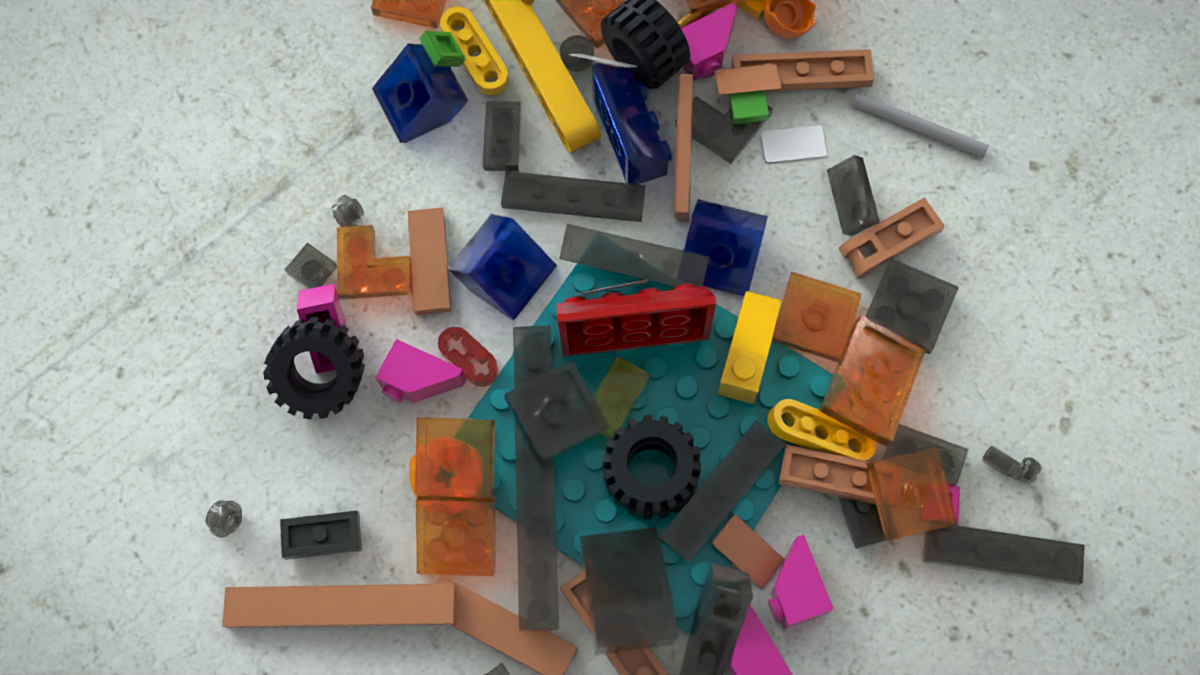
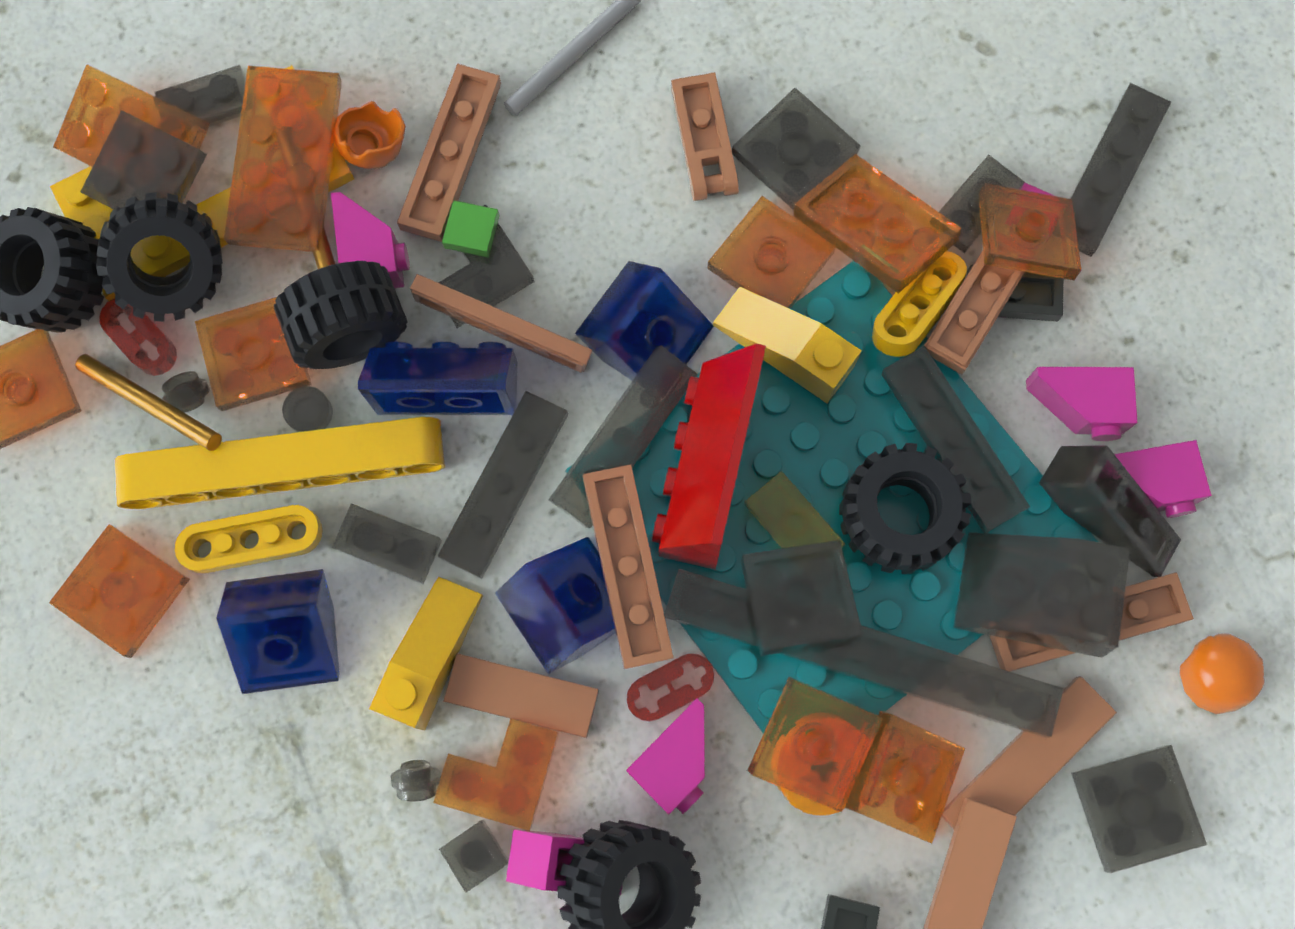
camera: 70 degrees left, 5 degrees up
(429, 186) = (426, 655): none -> yellow slope
(442, 48) = (235, 577): bright green tile -> none
(538, 289) = (627, 566): none -> nougat plate
(603, 60) = (342, 377): white sticker -> none
(611, 288) = (655, 478): white sticker -> none
(747, 79) = (439, 216): nougat sticker -> none
(748, 551) = (1026, 439): nougat sticker -> none
(793, 143) = (537, 200): white sticker -> none
(853, 195) = (636, 157): clear smoke plate -> none
(1006, 465) = (1017, 124): clear smoke arm -> none

